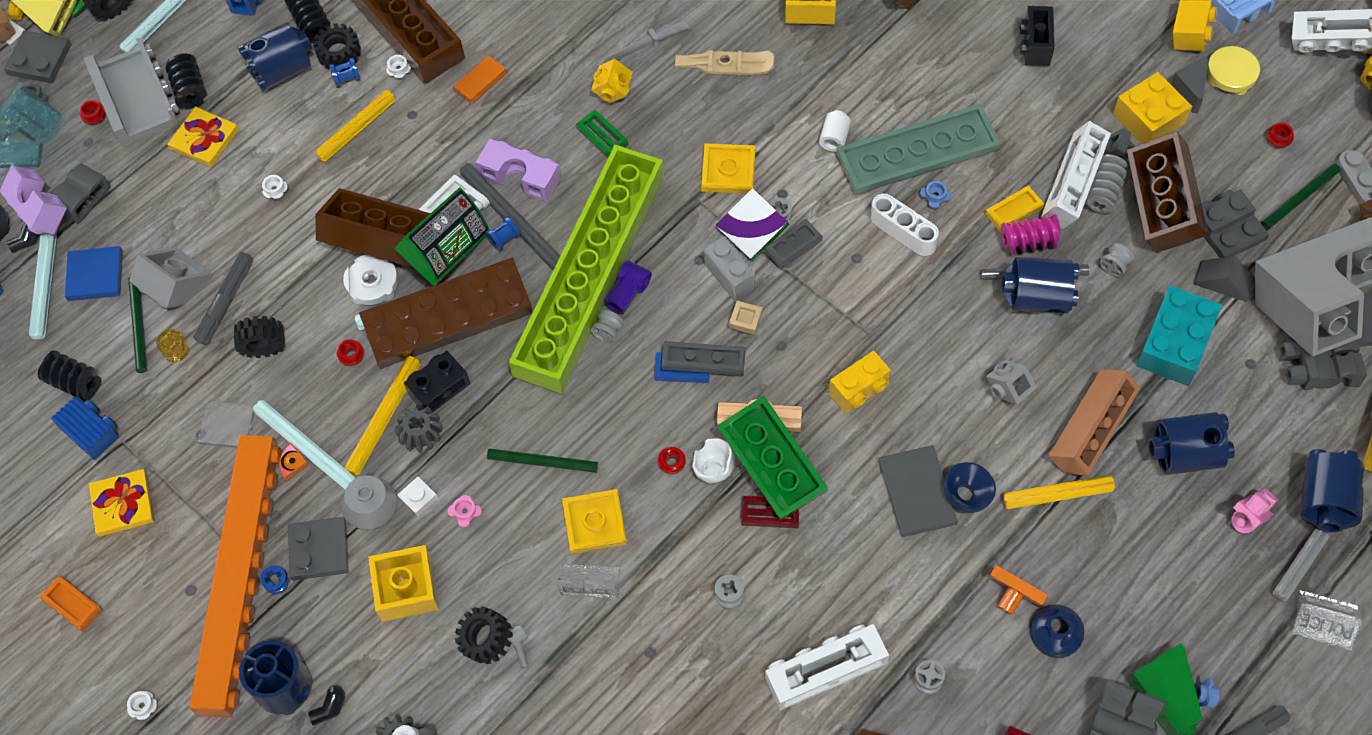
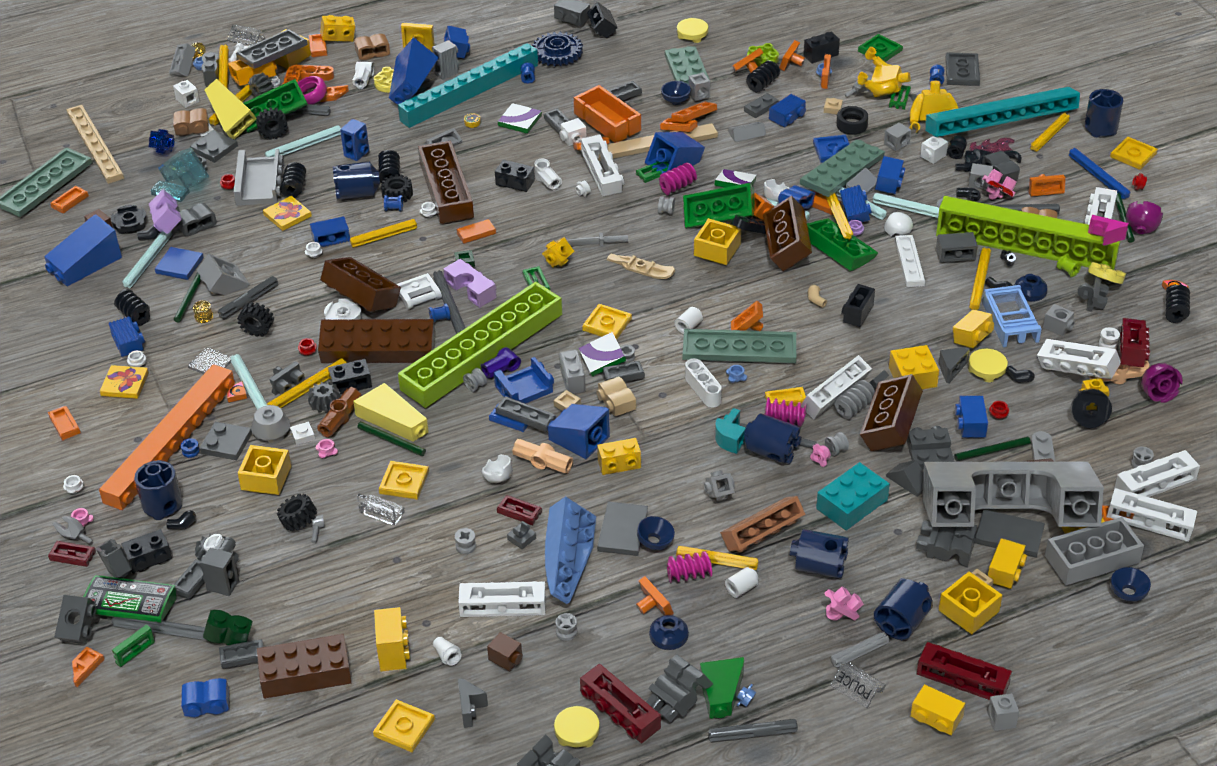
camera: 20 degrees right, 20 degrees down
(117, 453) = (136, 359): none -> white plate
(282, 149) = (330, 231): none -> blue brick
(346, 415) = (283, 378): none -> dark grey hips
(444, 237) = (397, 296): slope -> none
(452, 460) = (338, 412): none -> dark orange piece
(488, 130) = (466, 256): none -> plate
(525, 421) = (391, 412): none -> light yellow slope
(671, 453) = (472, 462): red plate -> none
(675, 307) = (525, 384): none -> blue panel
(772, 458) = (533, 474): green slope -> none
(786, 357) = (580, 429): none -> blue slope
(795, 552) = (521, 535): none -> dark grey tile
(805, 285) = (616, 396): none -> tan brick
(869, 555) = (567, 546): none -> medium blue wedge
(913, 105) = (749, 318): none -> orange tile
(970, 37) = (813, 296): none -> tan arm
(977, 295) = (729, 433): none -> teal brick
(1035, 521) = (689, 566): none -> dark pink piece
(1106, 284) = (820, 454): none -> bright pink plate
(1111, 520) = (741, 582): none -> white brick
(1260, 159) = (972, 416): none -> blue brick
(1278, 74) = (1020, 376): none -> black arm

